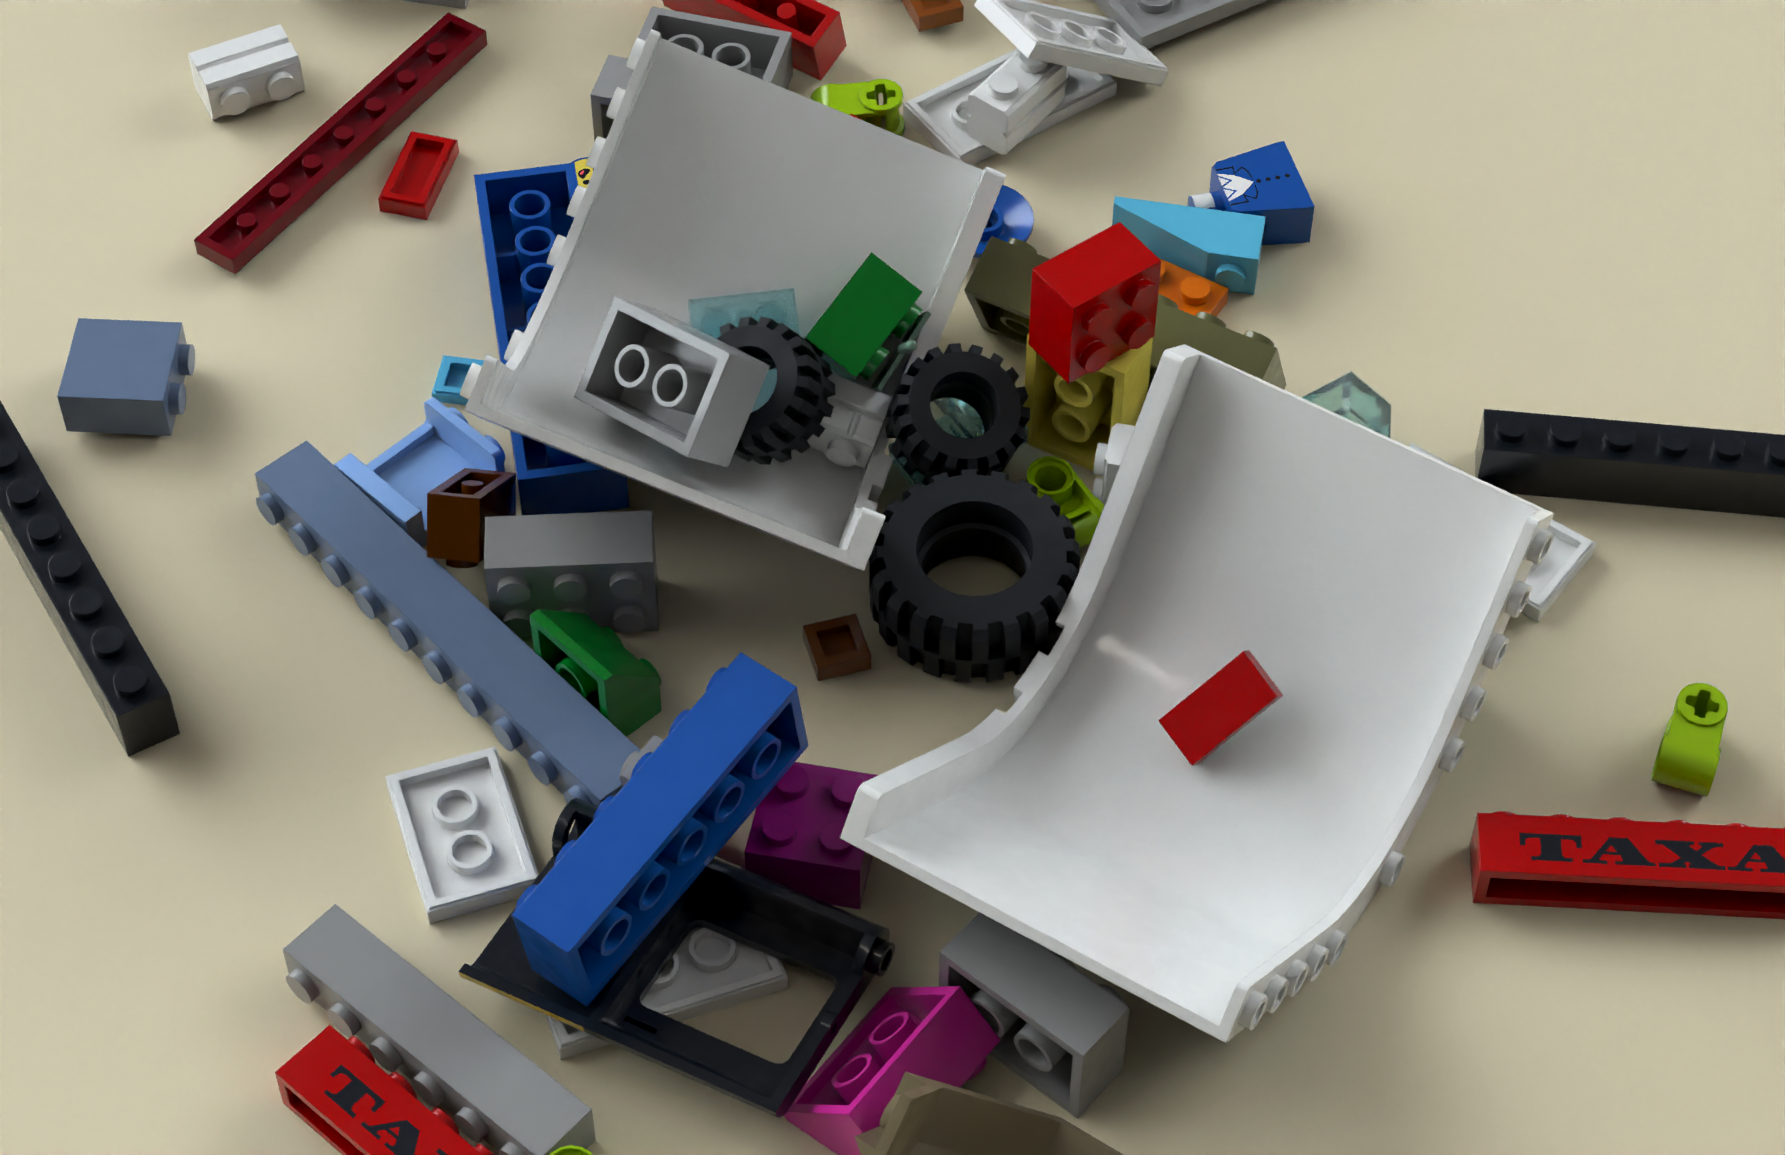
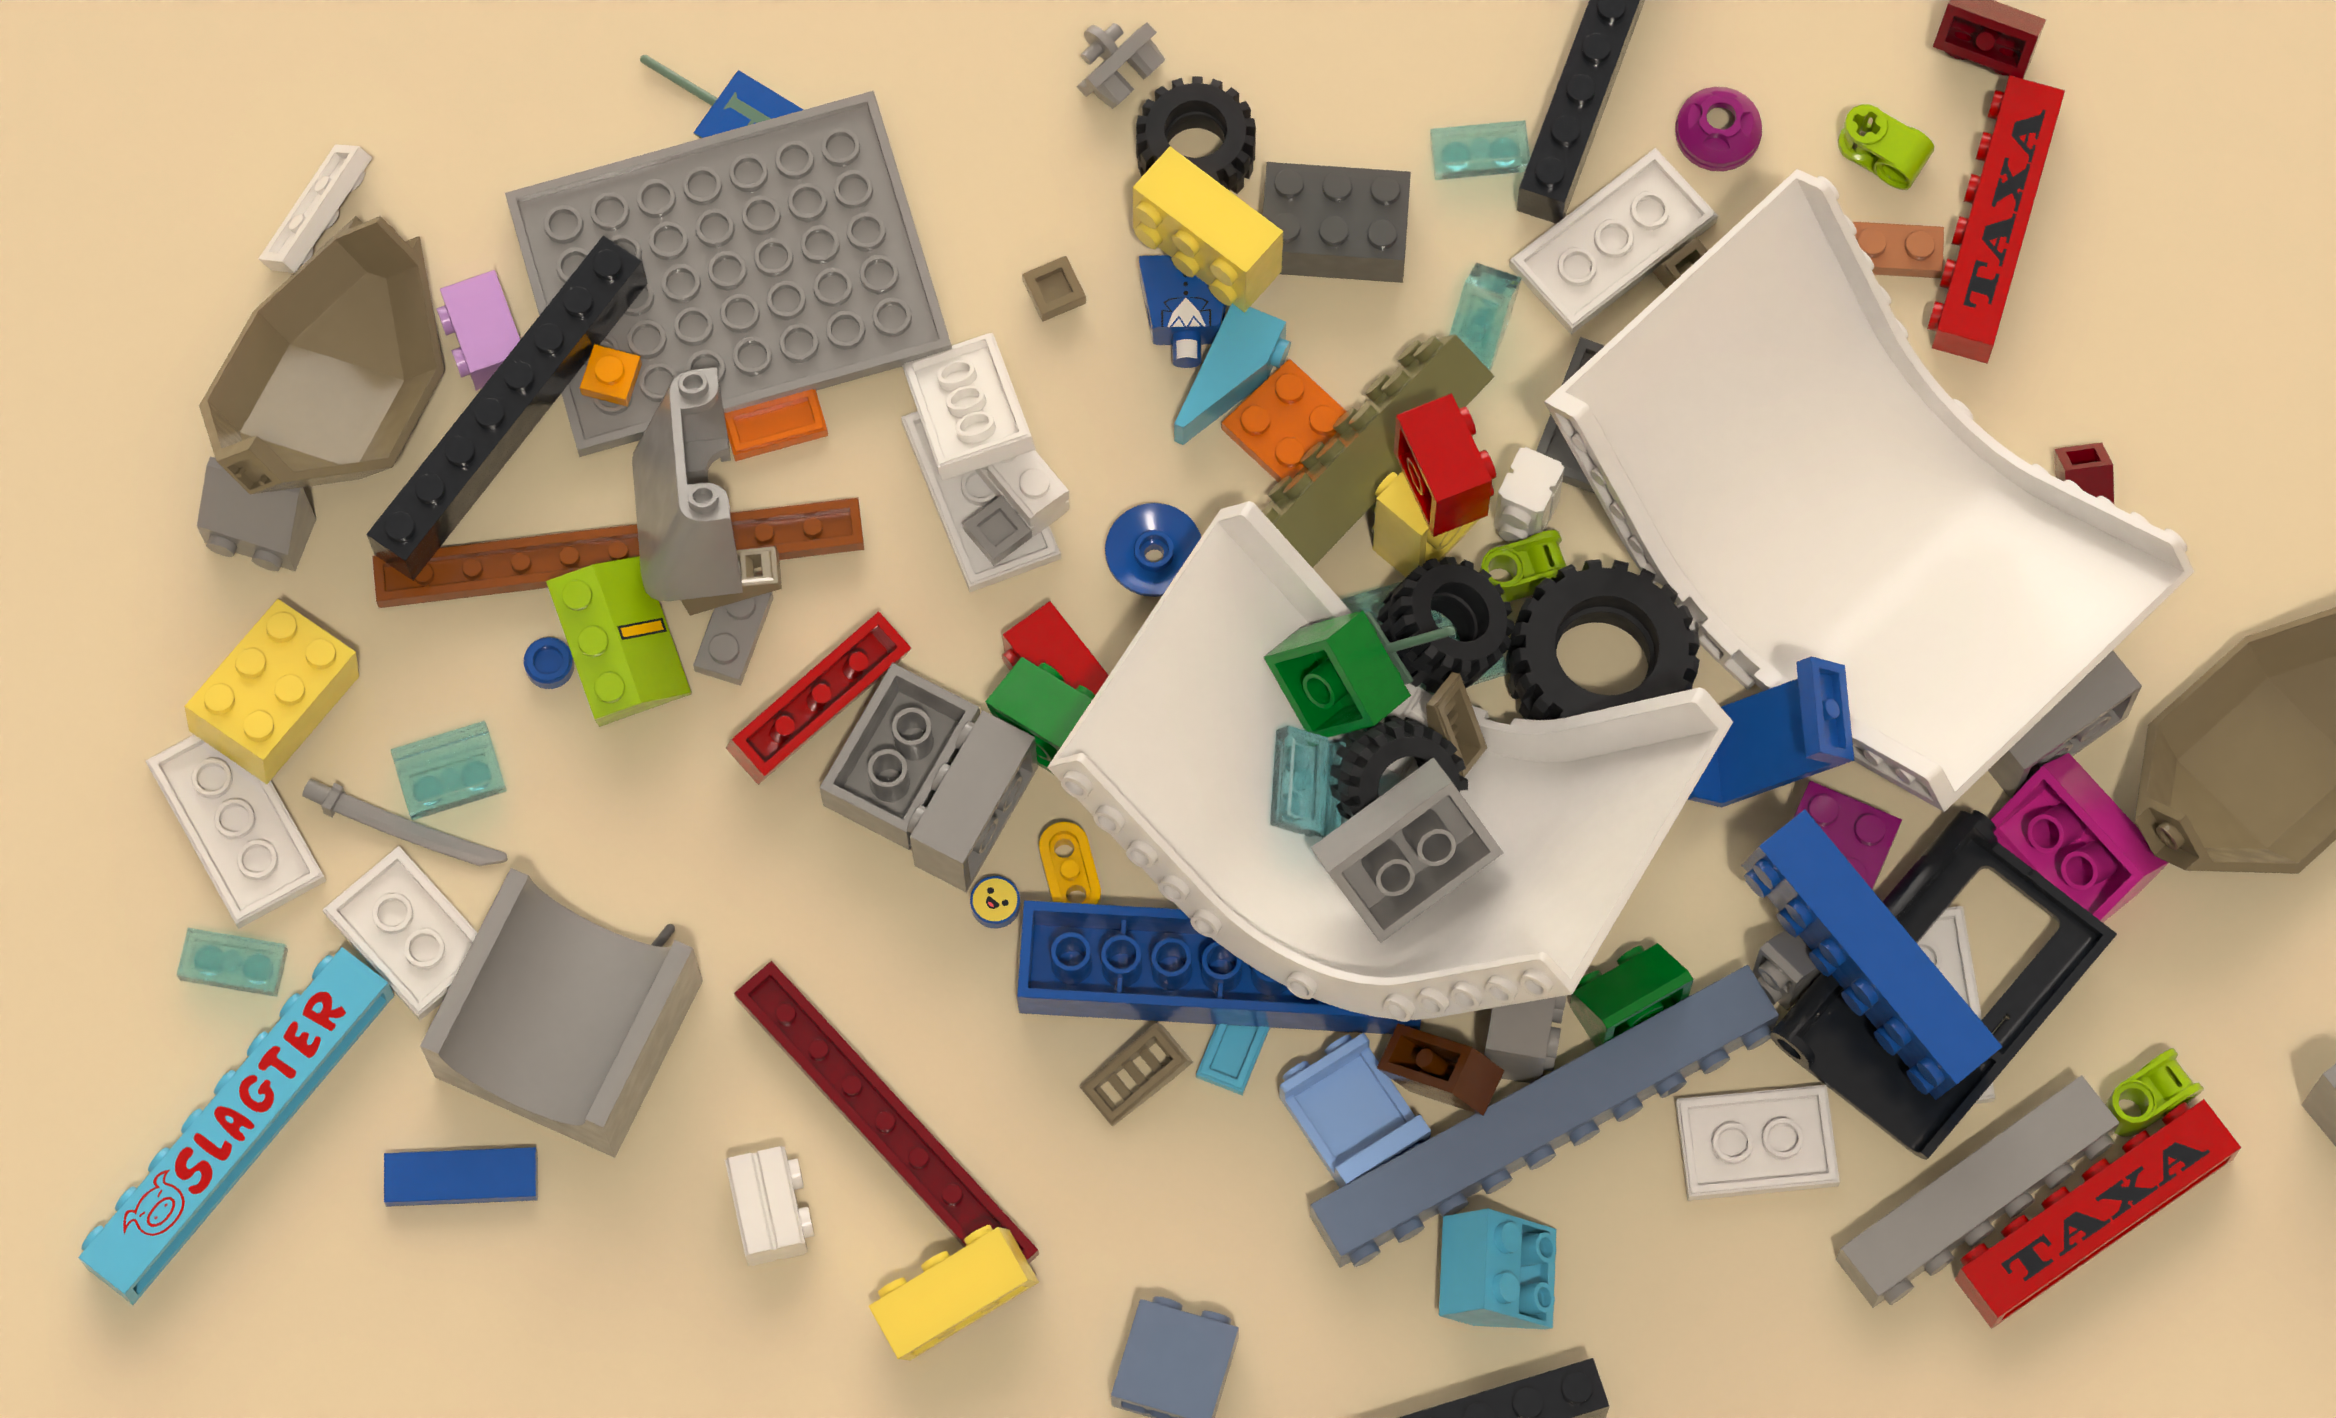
camera: 75 degrees left, 20 degrees up
(174, 199) = (952, 1292): none -> light yellow brick
(268, 623) = (1497, 1270): none -> medium azure slope
(418, 175) = (944, 1061): red tile -> none
(440, 314) = (1139, 1047): none -> dark tan slope
(830, 479) = (1453, 717): none -> dark tan slope
(863, 101) = (978, 637): lime piece -> none
(919, 711) = (1781, 736): none -> blue panel
(950, 96) = (997, 530): none -> light grey plate
(1220, 707) = (1797, 495): red tile -> none
(1232, 106) = (1054, 288): none -> dark tan plate
(1315, 152) = (1206, 230): none -> light yellow brick
(1354, 1010) = (2087, 467): none -> dark red brick
(1390, 291) = (1339, 220): none -> dark grey brick
(1427, 170) = (1204, 108): none -> black tyre
(1492, 100) = (1136, 50): none -> light grey hips
(1519, 384) = (1479, 150): none -> clear light blue plate
(1562, 752) = (1902, 248): none -> nougat plate
(1645, 614) = (1714, 147): none -> magenta piece

